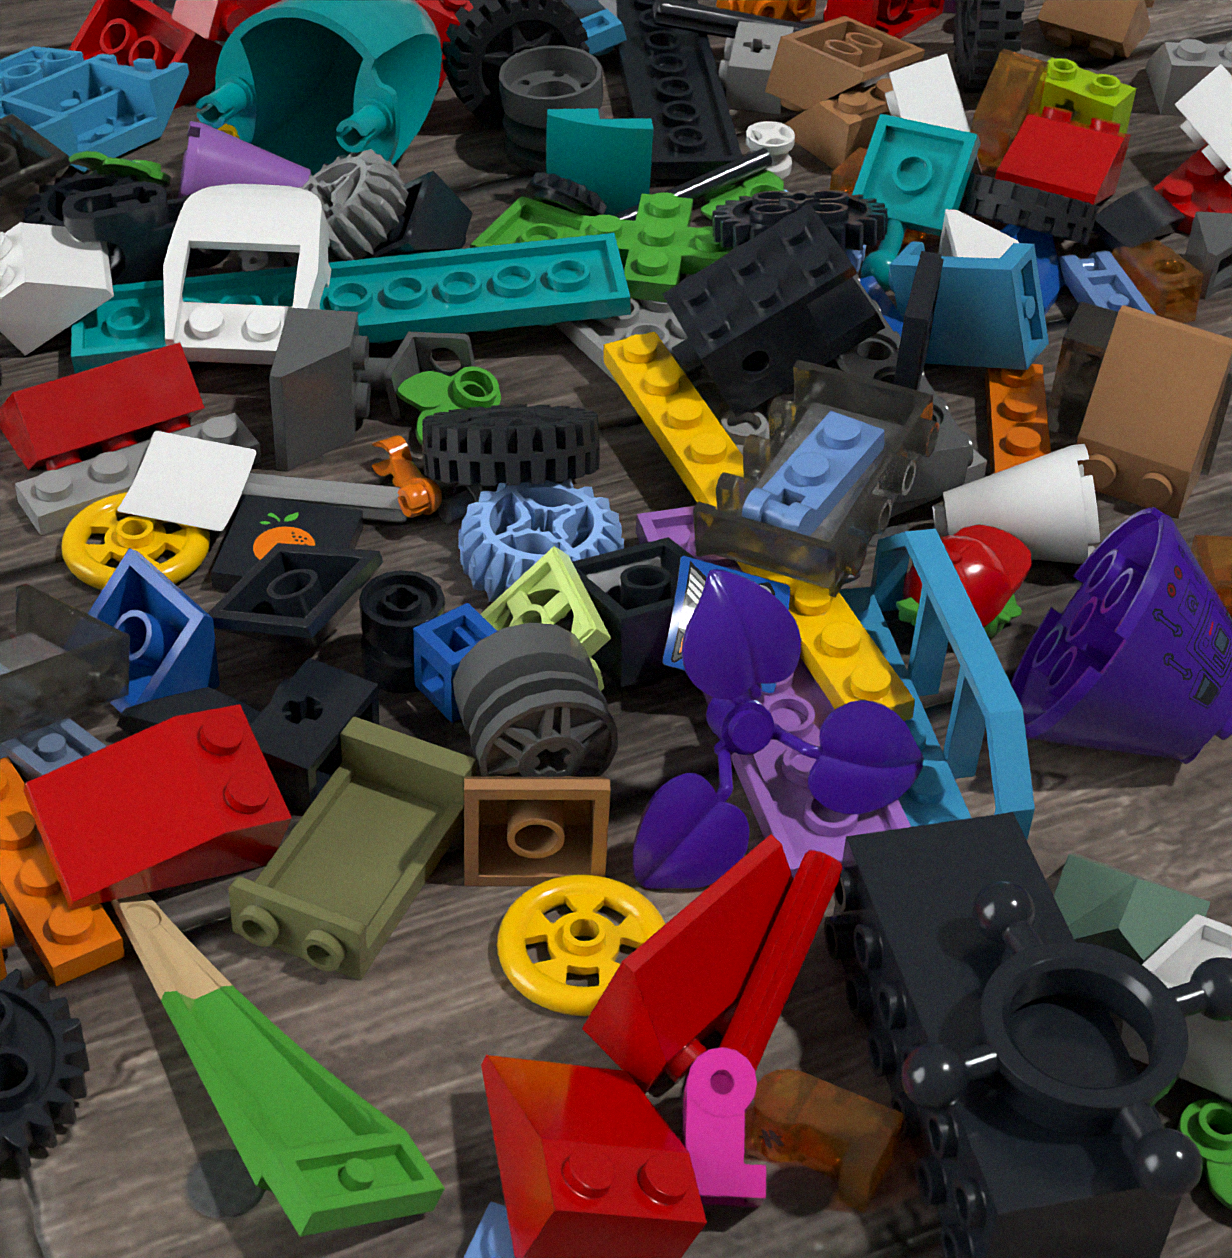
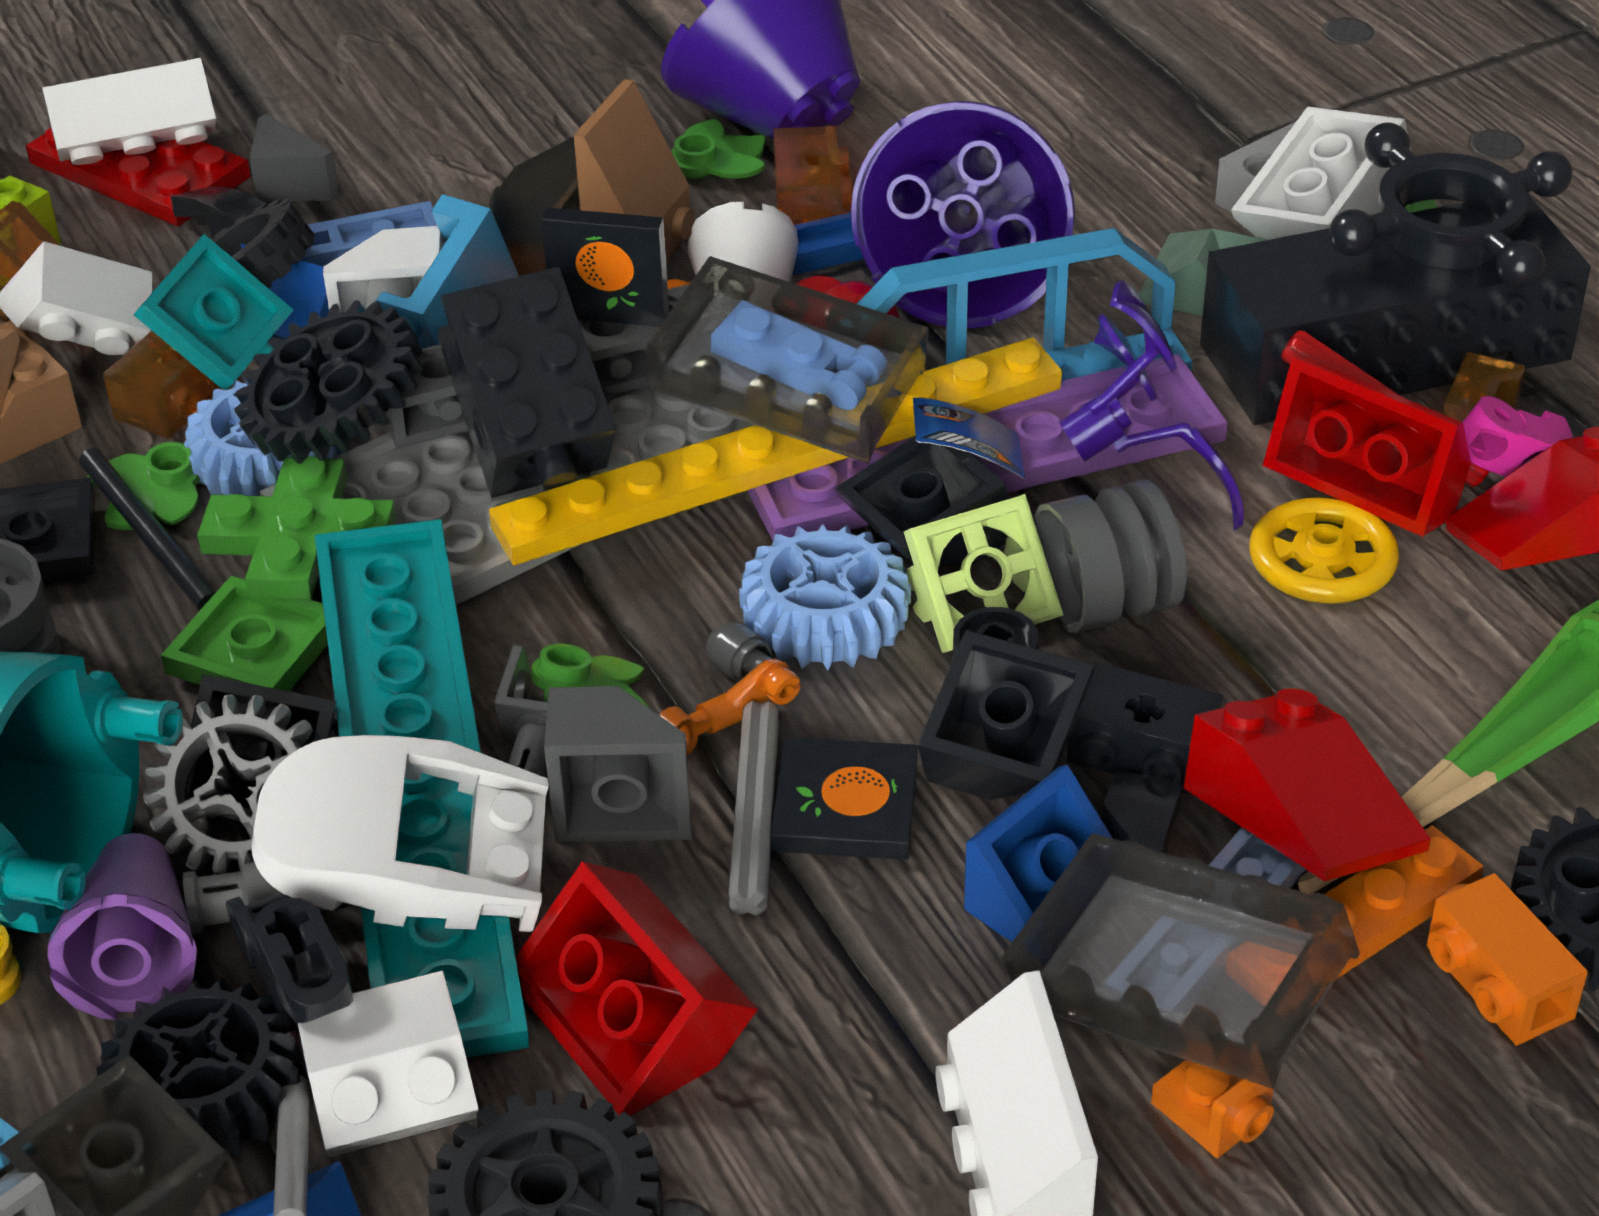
camera: 90 degrees left, 0 degrees up
(61, 494) = (789, 1005): light grey plate -> none
(133, 532) = (847, 881): yellow plate -> none
(144, 170) = (77, 1048): bright green plate -> none
(189, 481) = (772, 876): white sticker -> none
(357, 851) = (1258, 667): olive panel -> none
(439, 649) = (1050, 603): blue brick -> none
(511, 444) = (707, 600): black wheel -> none
(534, 829) = (1231, 554): medium nougat slope -> none
(565, 194) = (173, 614): black gear -> none
(601, 154) = (122, 575): teal slope -> none
(777, 140) = (51, 457): white wheel -> none
(1066, 155) = (150, 222): red slope -> none
(1163, 279) = (339, 195): clear orange leg -> none

